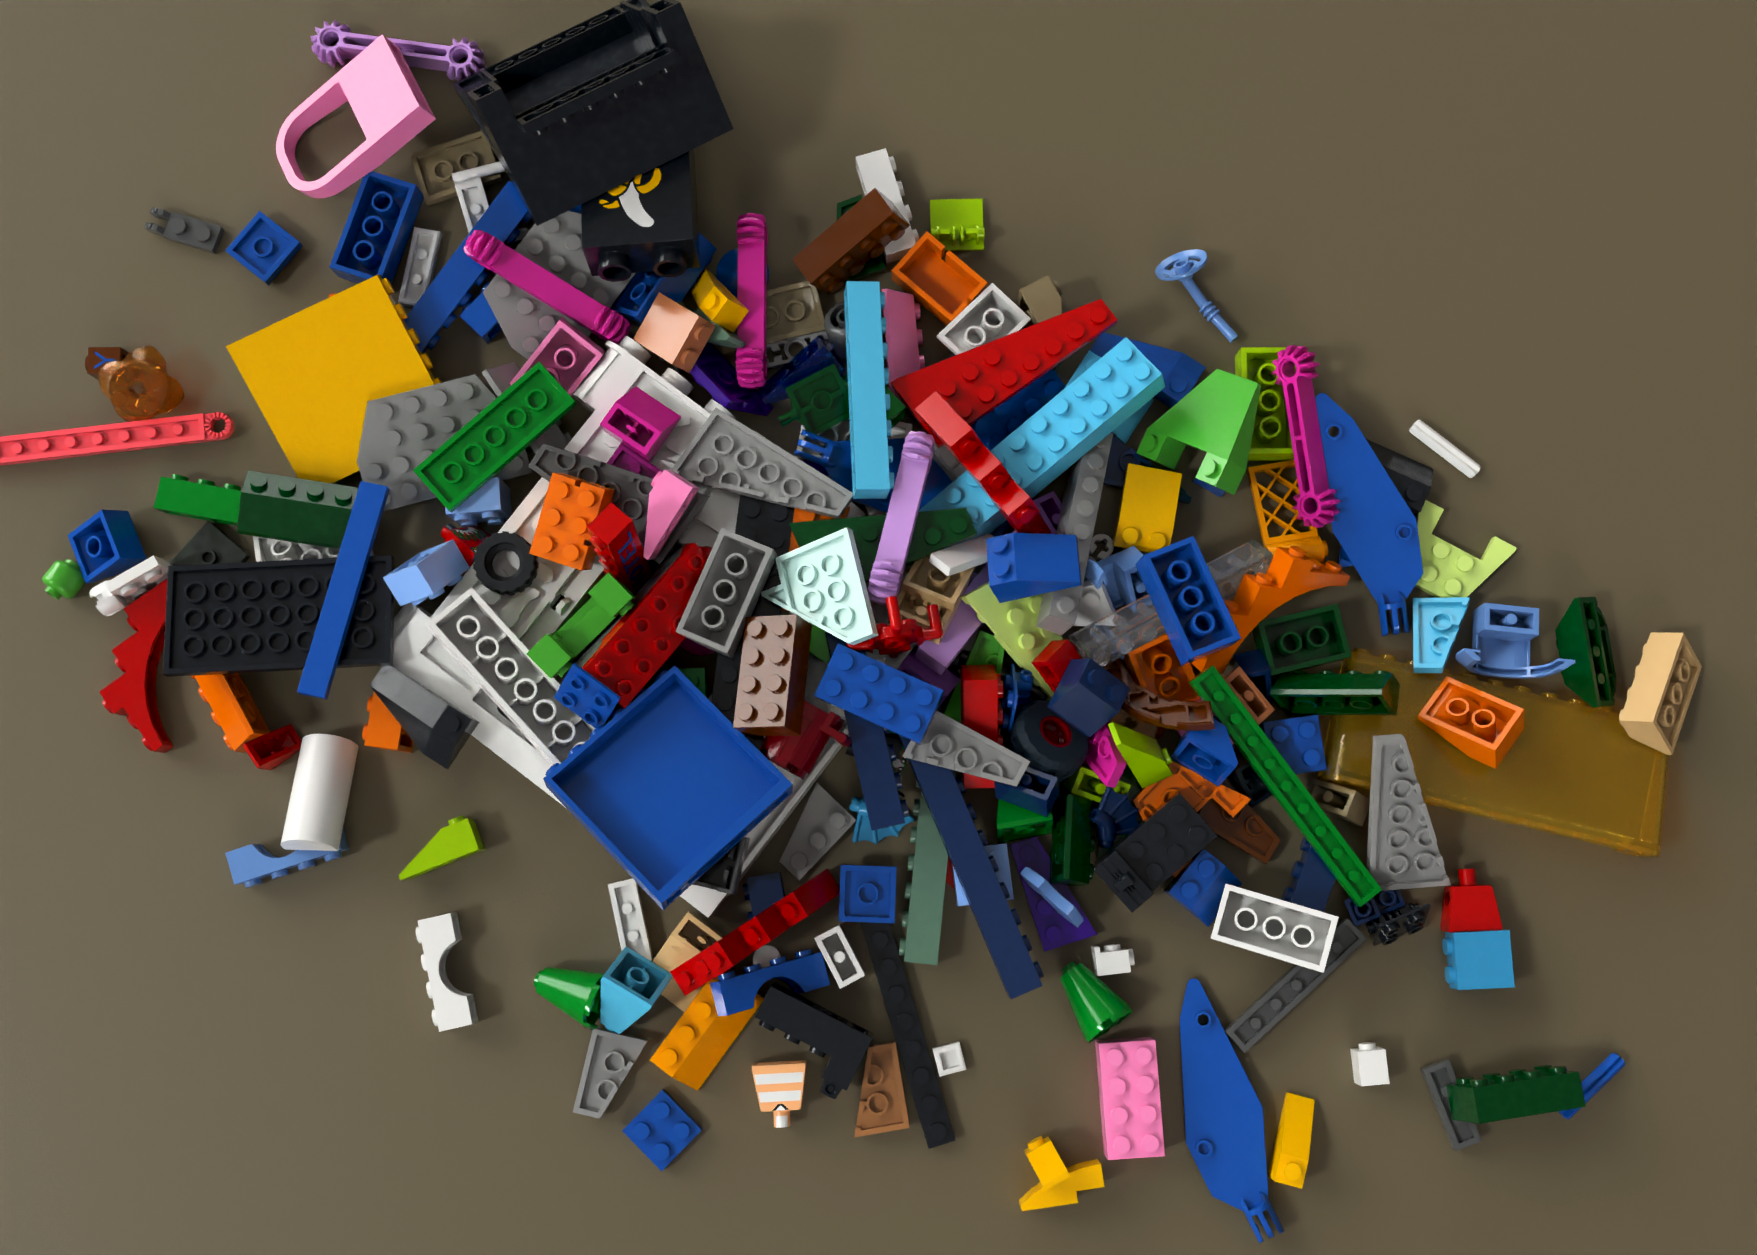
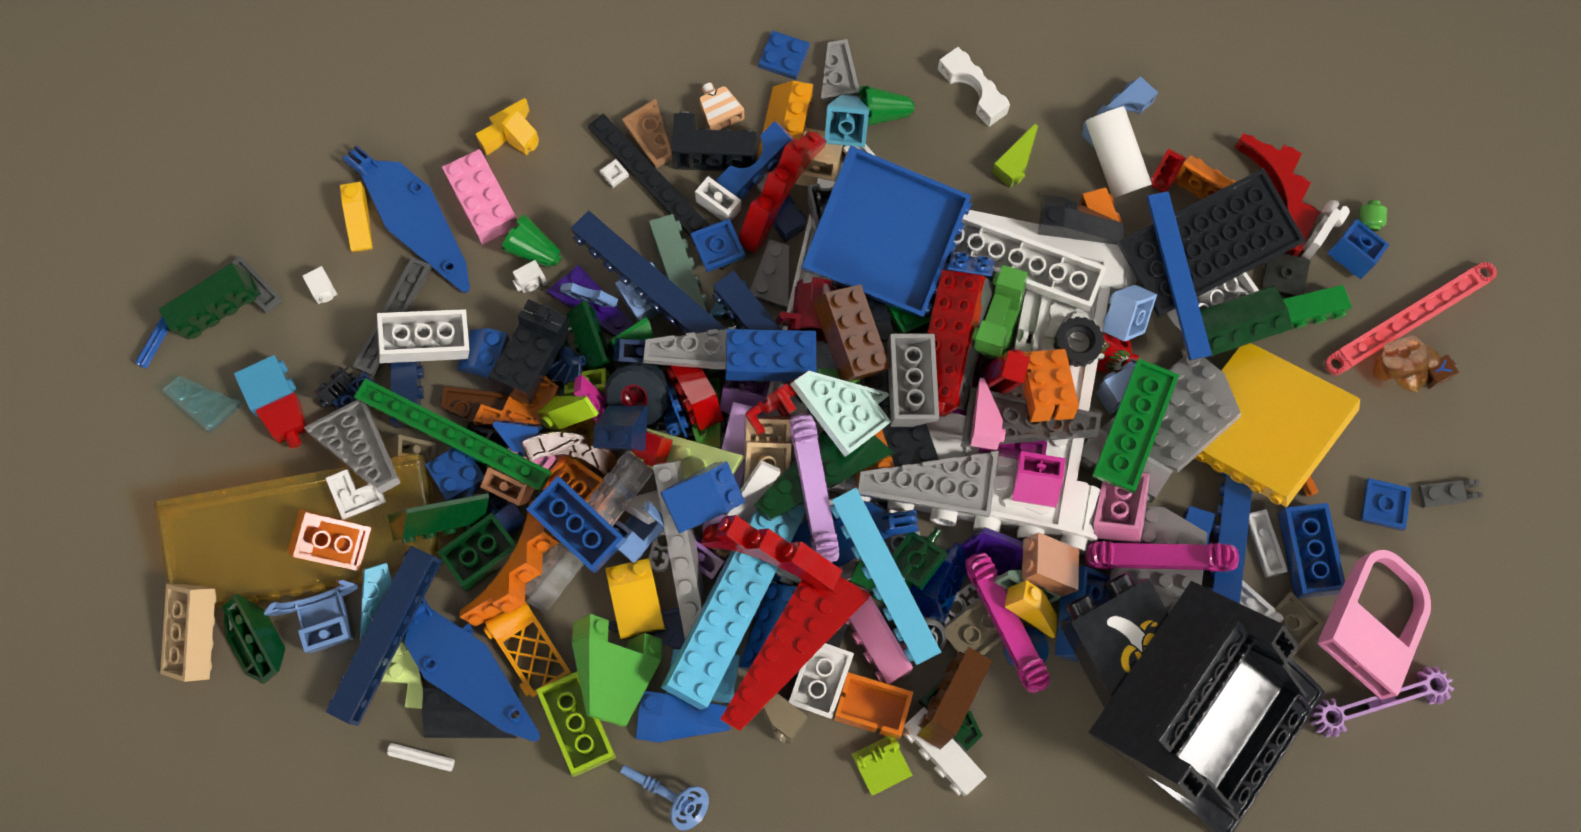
camera: 150 degrees right, 10 degrees down
(1305, 436) = (560, 742): dark pink arm -> none
(1435, 758) = (352, 500): none -> white plate
(1443, 588) = (383, 636): none -> dark blue brick
(1561, 974) = (201, 404): none -> clear light blue wing

